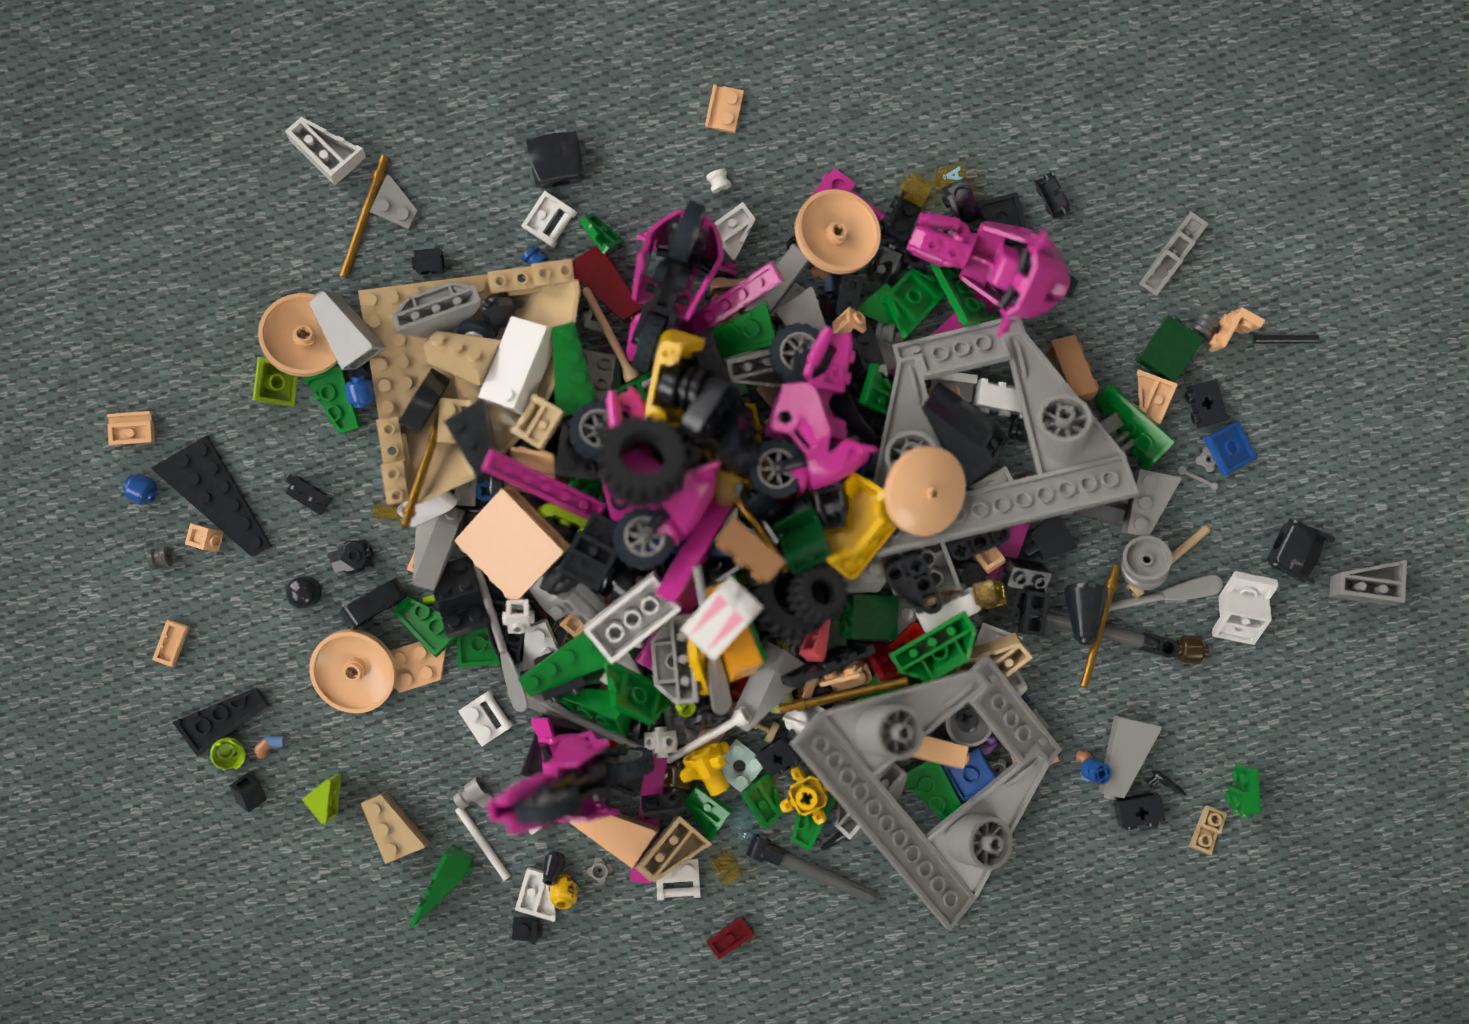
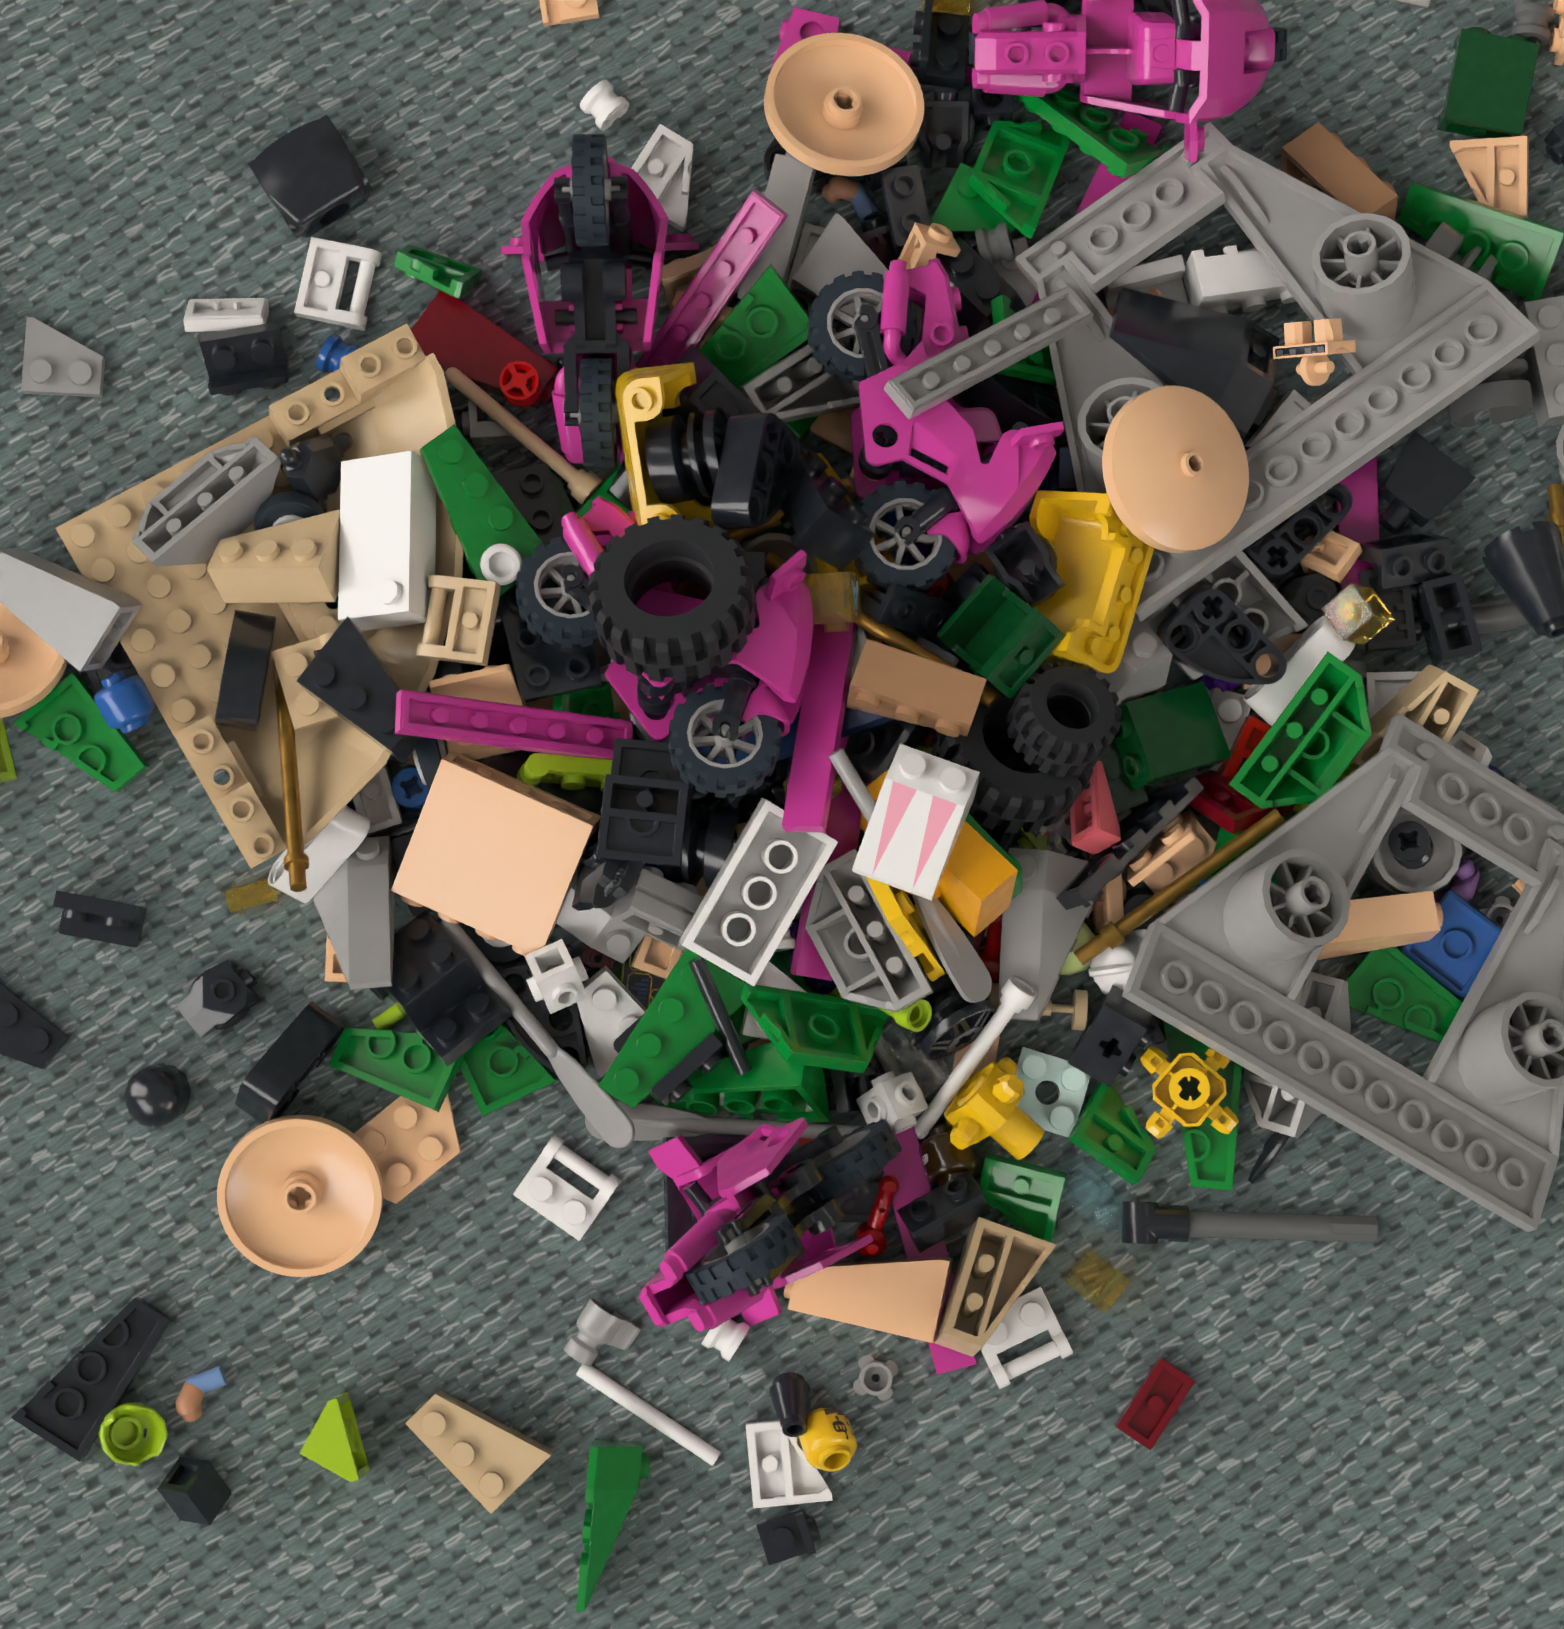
camera: 20 degrees left, 5 degrees down
(377, 178) = (12, 329): pearl gold bar -> none
(428, 261) = (157, 435): black brick -> none
(486, 213) = (225, 314): none -> white plate
(487, 240) = (245, 359): none -> black bracket
(569, 402) = (500, 564): none -> white tile
(590, 669) = (720, 1015): none -> black bar
(616, 306) = (517, 376): none -> red wheel
(624, 800) = (888, 1187): none -> red piece
(855, 393) = (988, 352): none -> light grey tile
(1017, 430) = (1286, 314): black wheel -> none
(1020, 456) = (1314, 363): none -> light nougat hips

